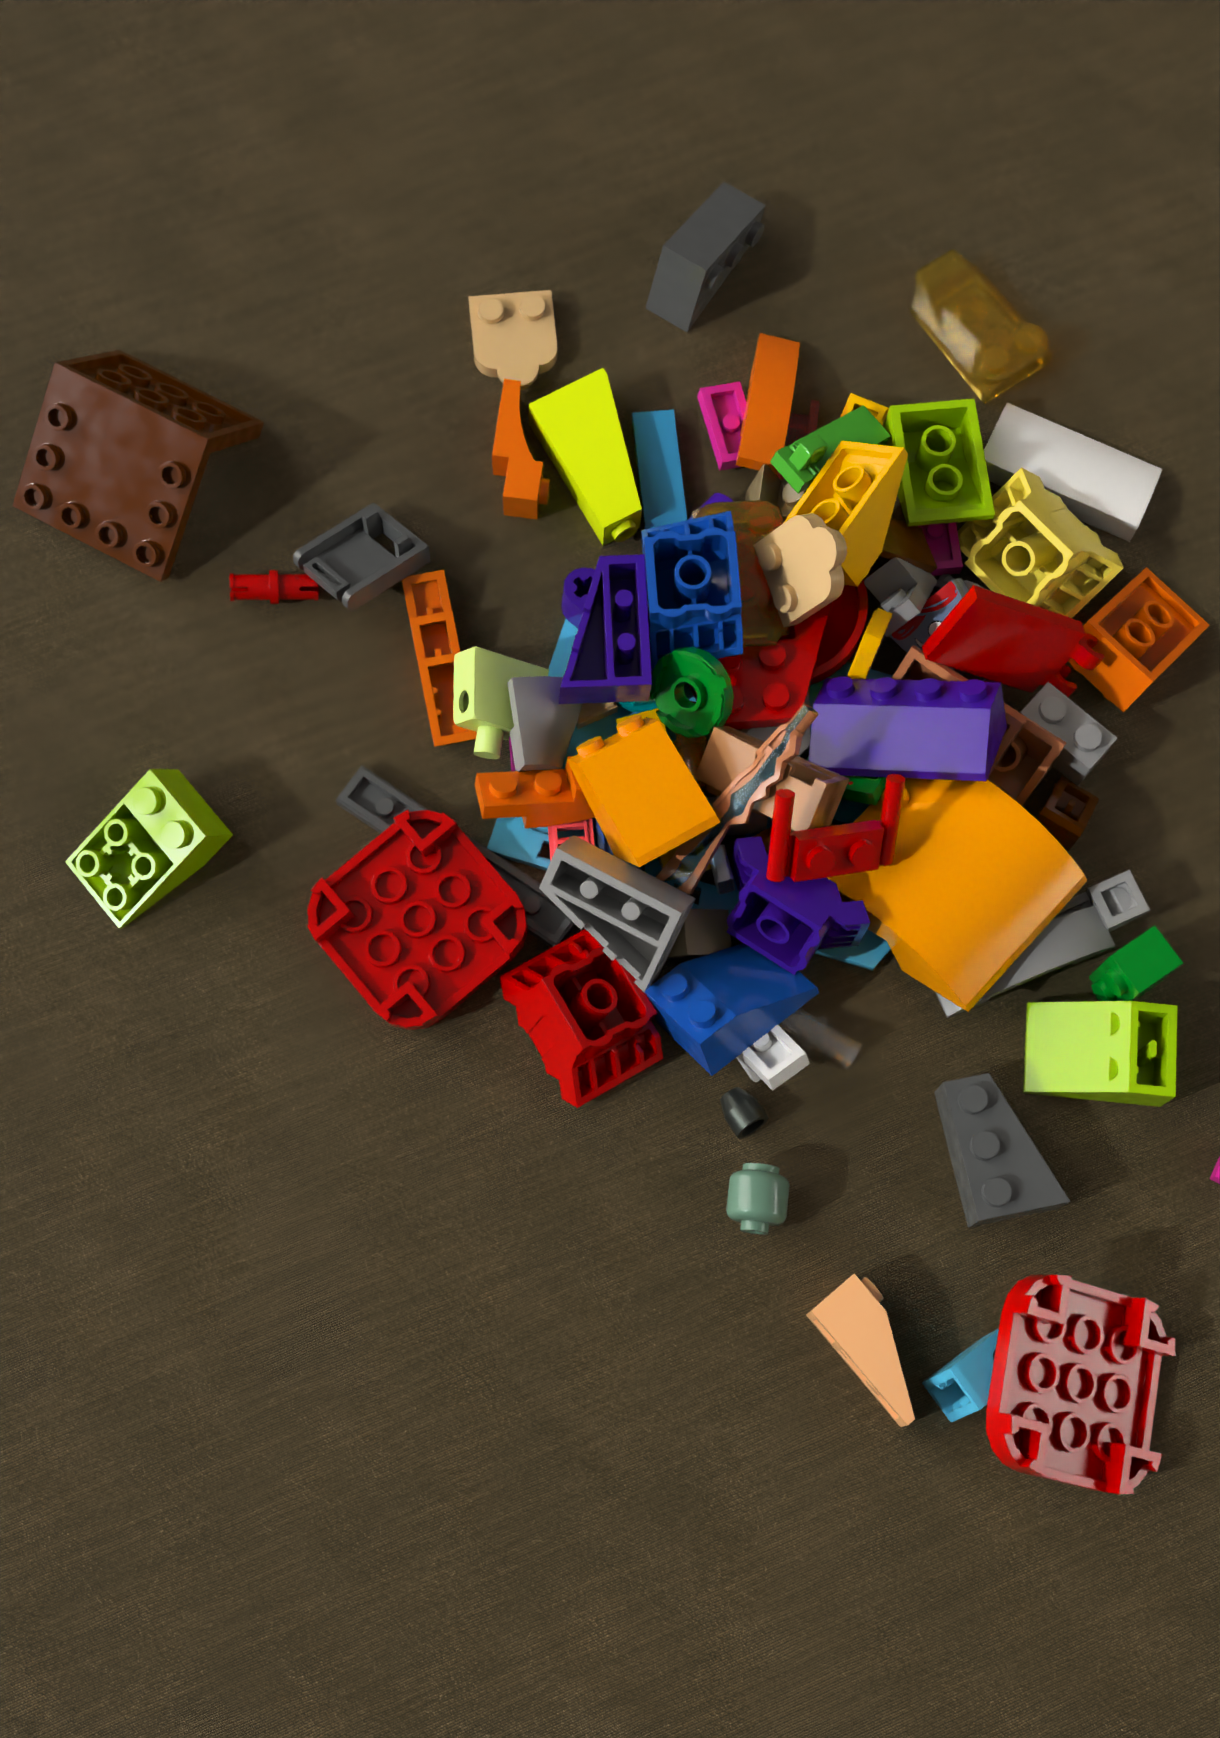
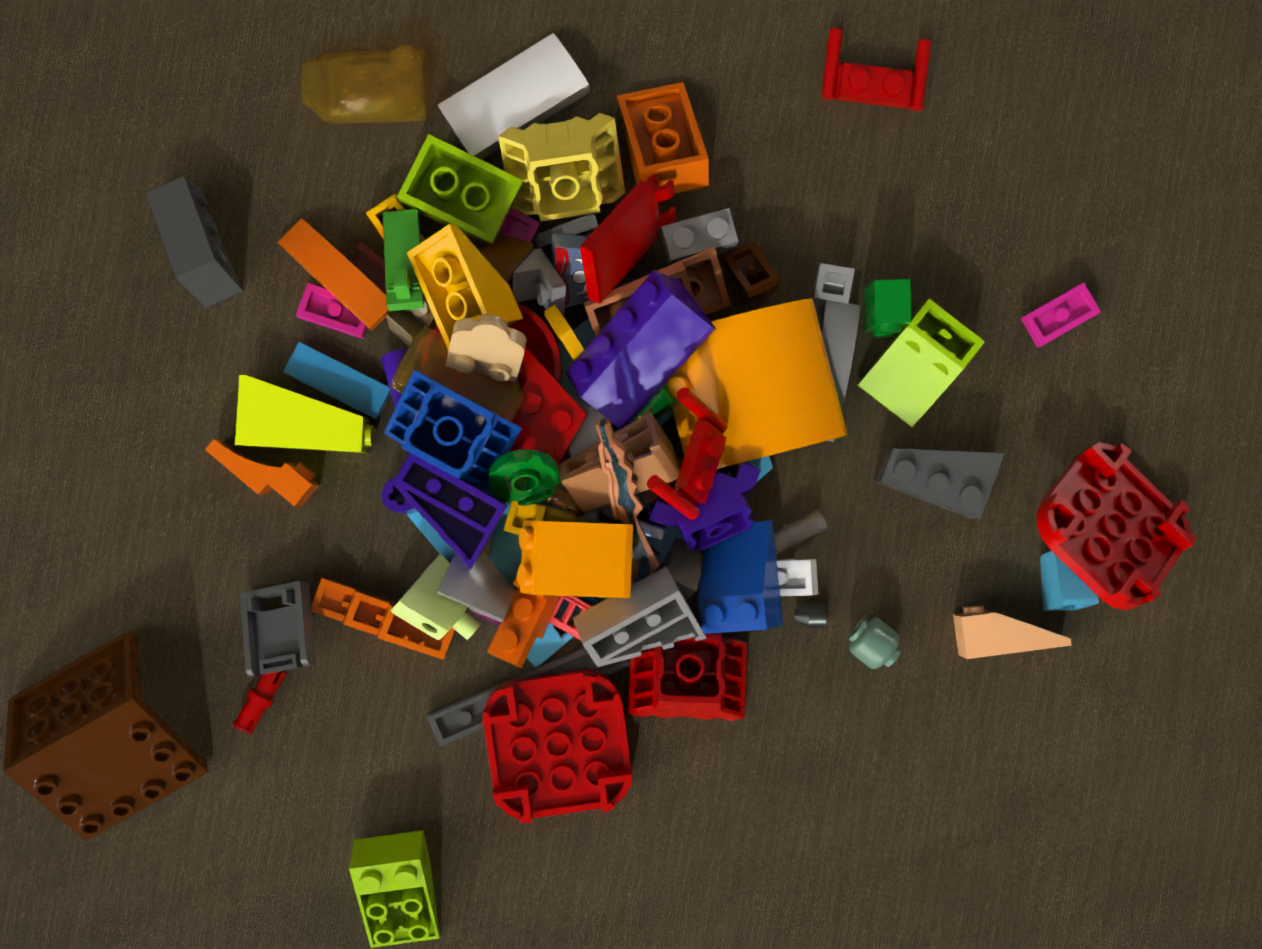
camera: 55 degrees left, 15 degrees up
(514, 335) = (171, 415): tan plate -> none

